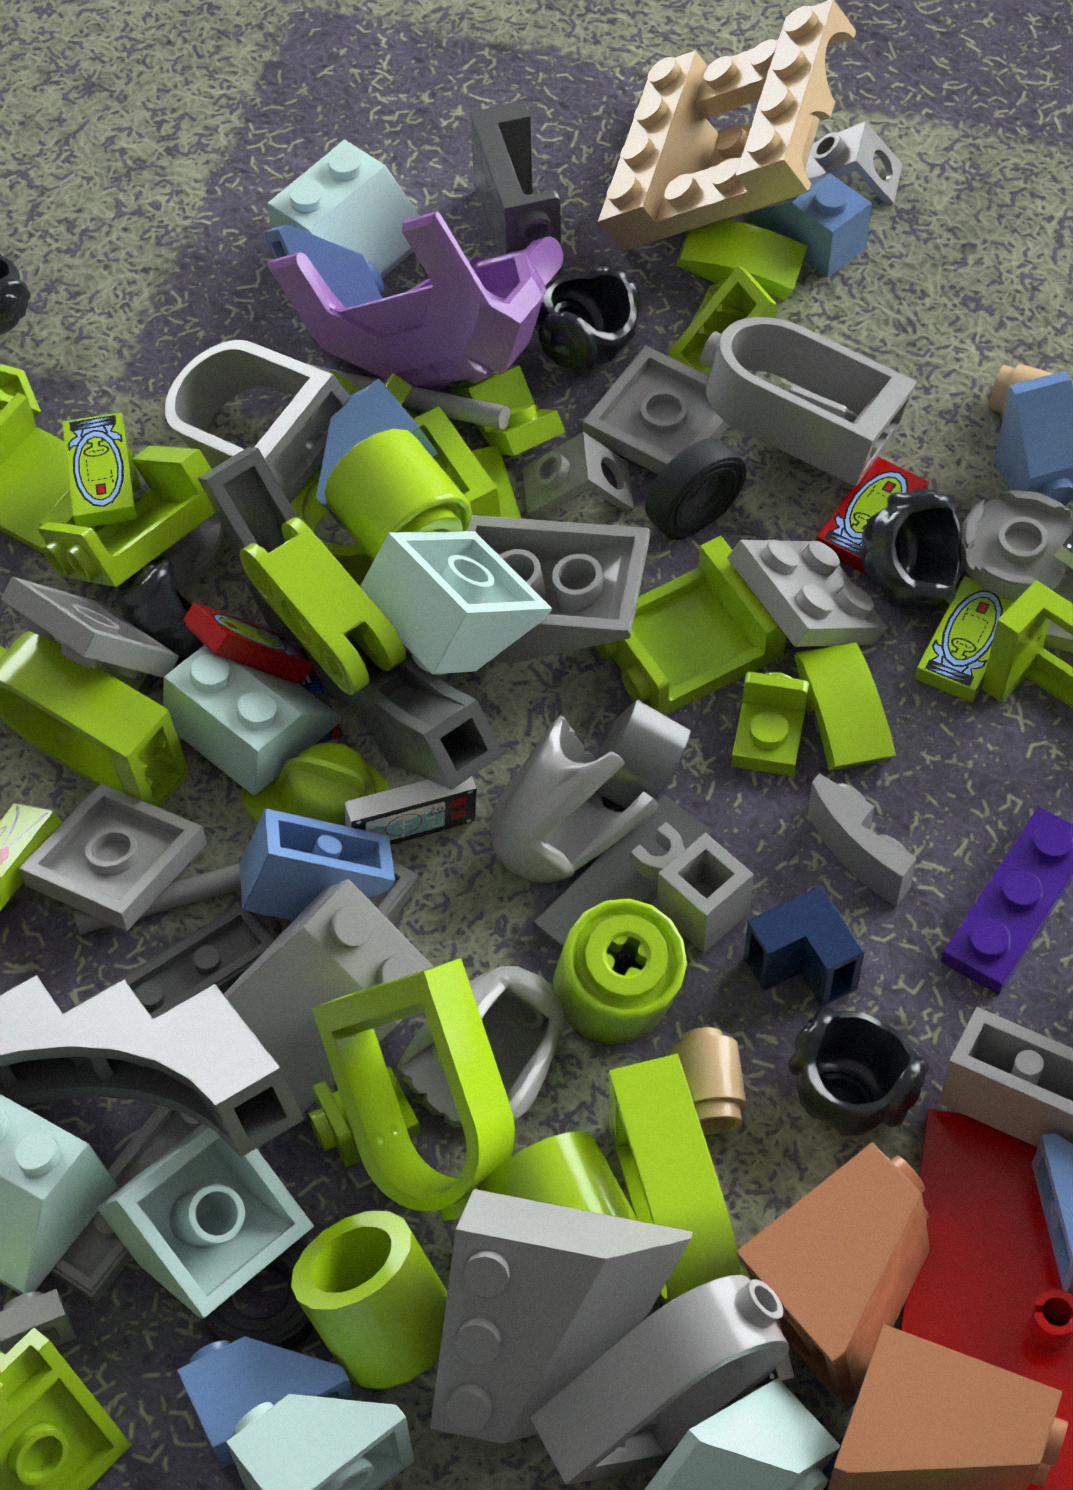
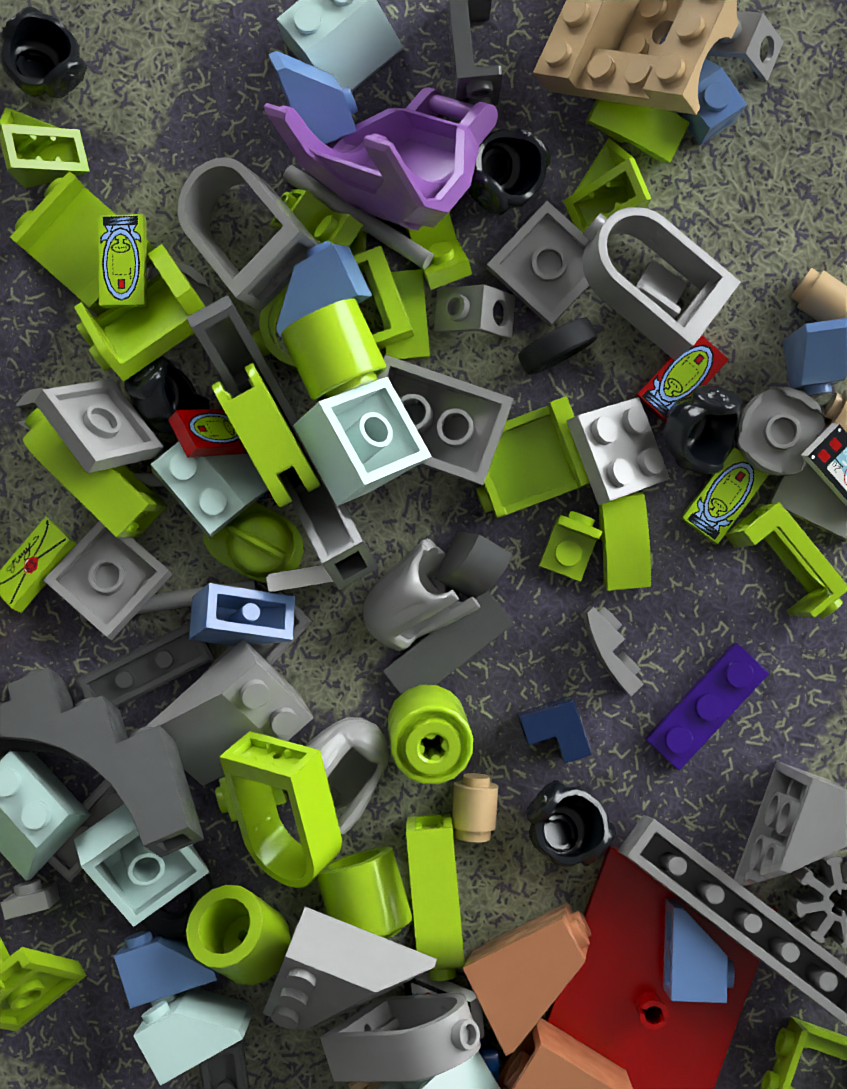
camera: 10 degrees right, 30 degrees up
(698, 887) = (494, 674): light grey brick -> none

